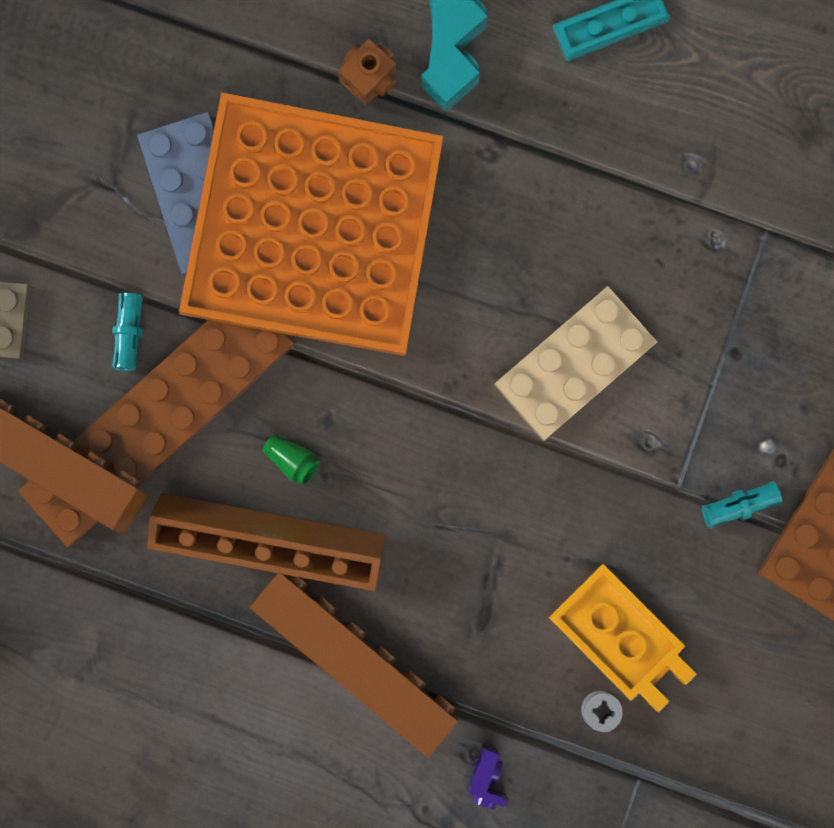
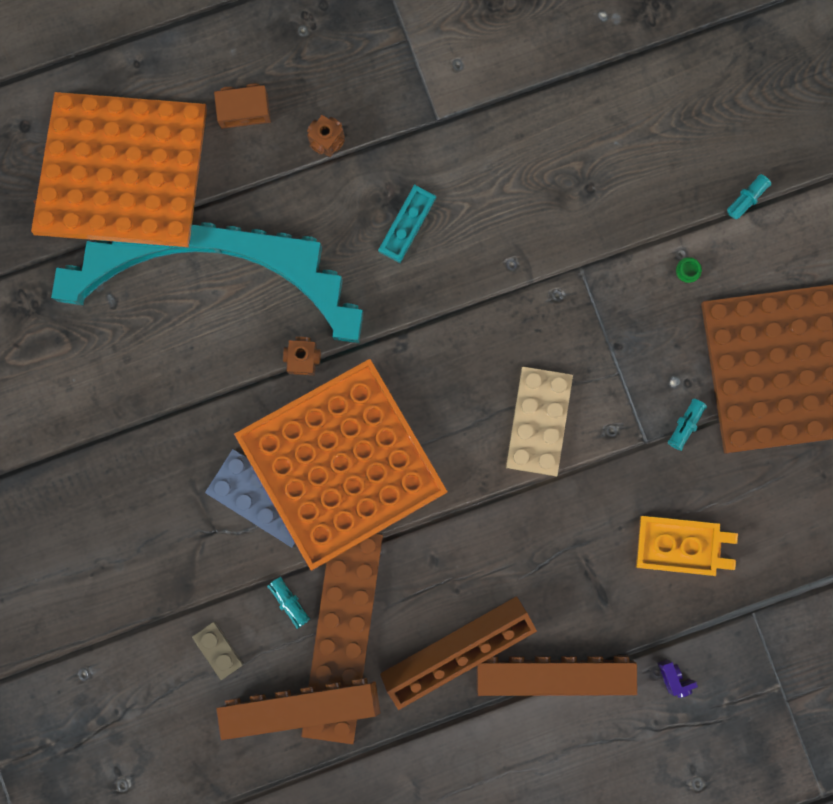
camera: 40 degrees left, 0 degrees up
(292, 459) = (433, 597): green cone -> none
(594, 710) = (699, 593): light grey wheel -> none

